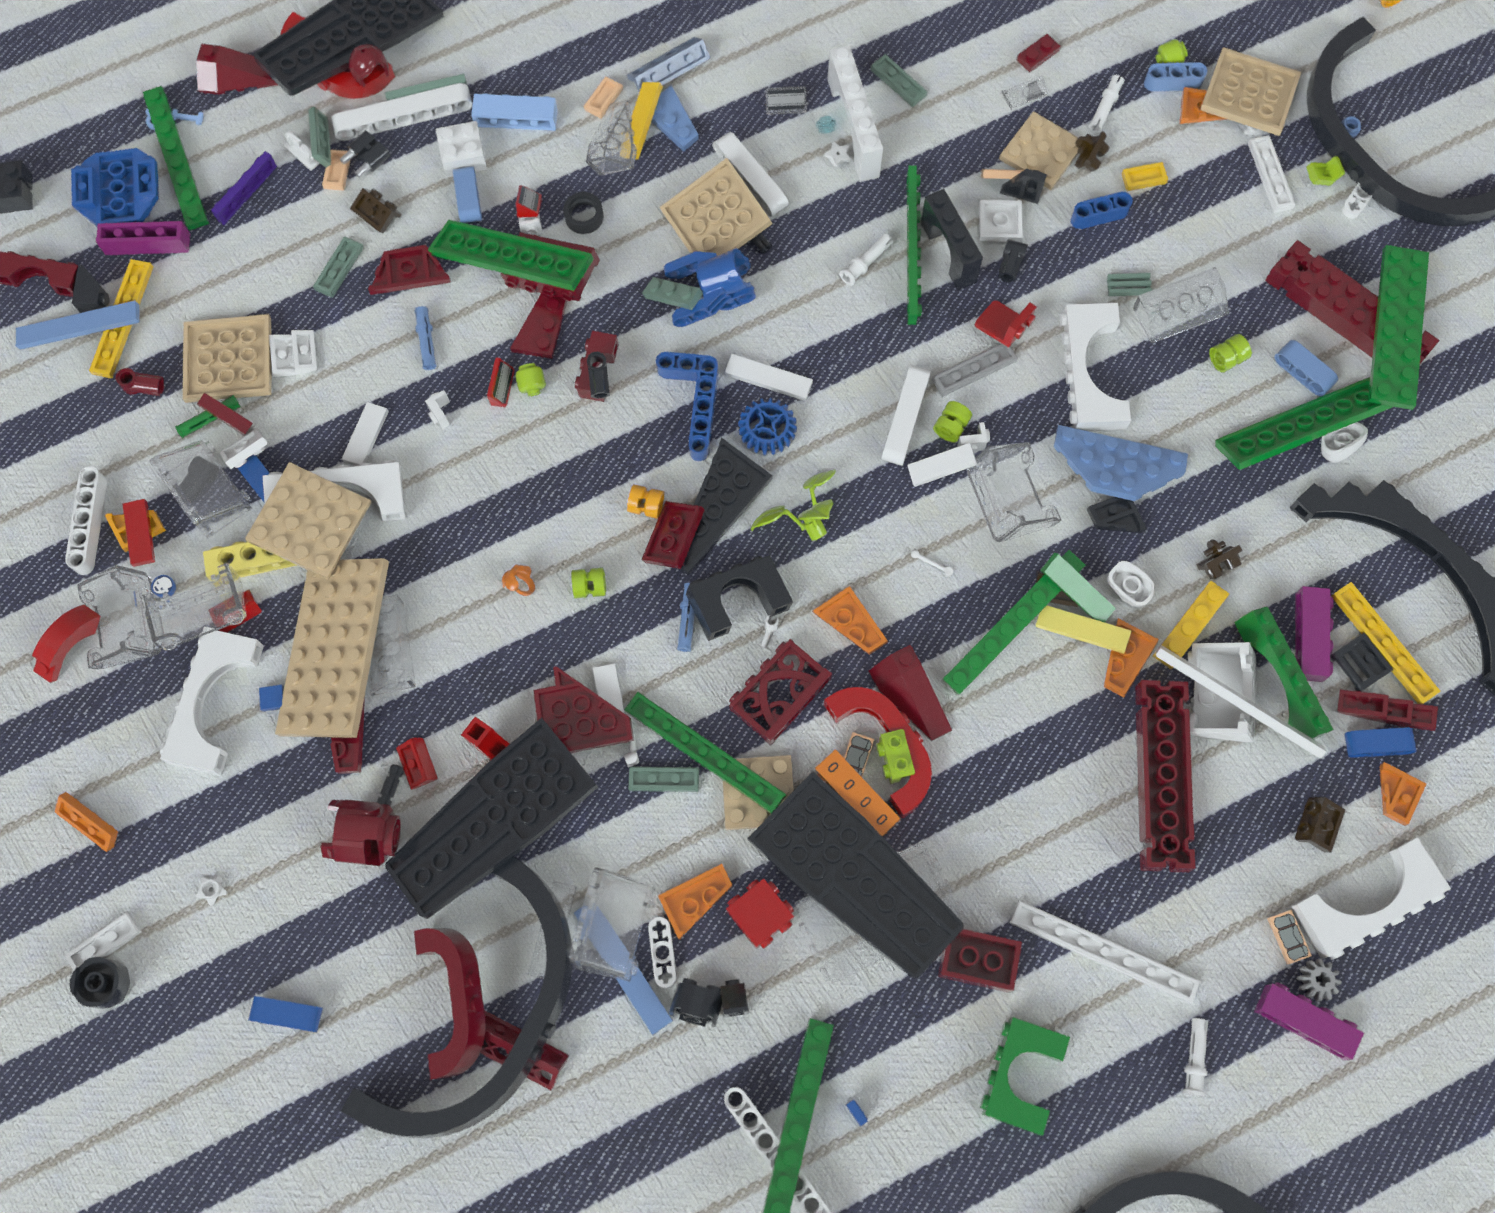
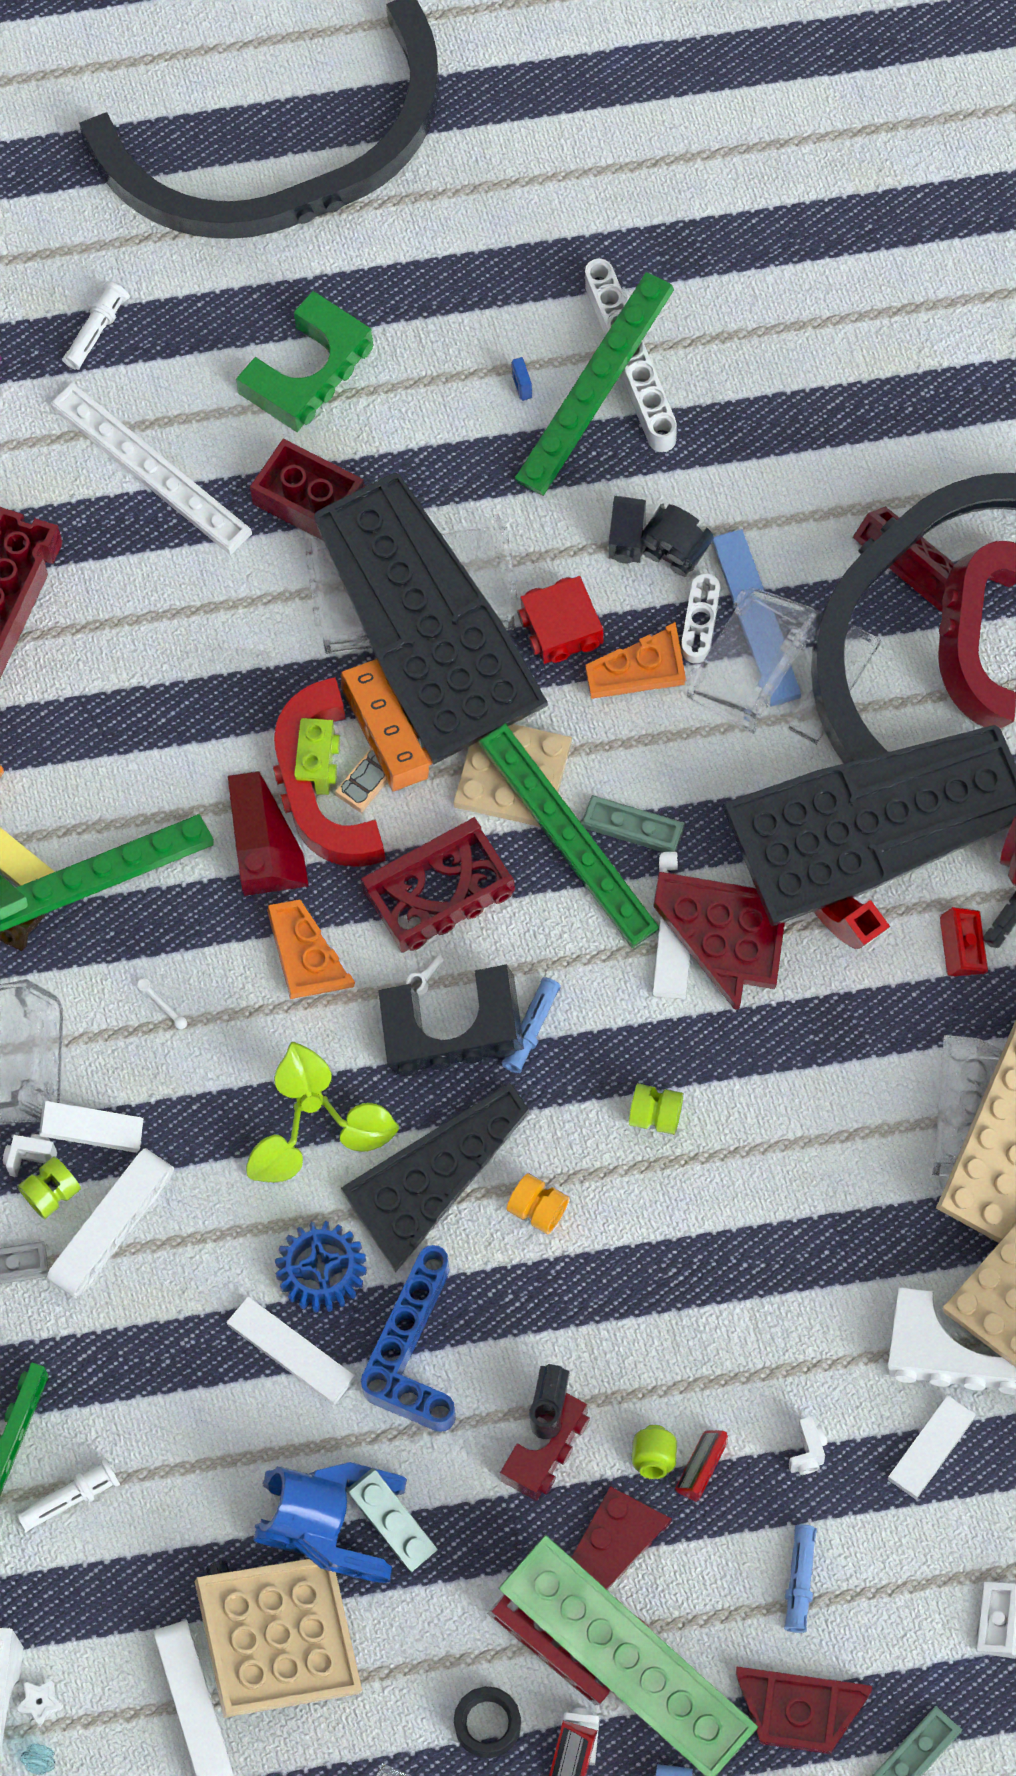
camera: 160 degrees left, 5 degrees down
(511, 583) = (767, 1150): orange piece -> none
(673, 534) = (513, 1142): dark red tile -> none

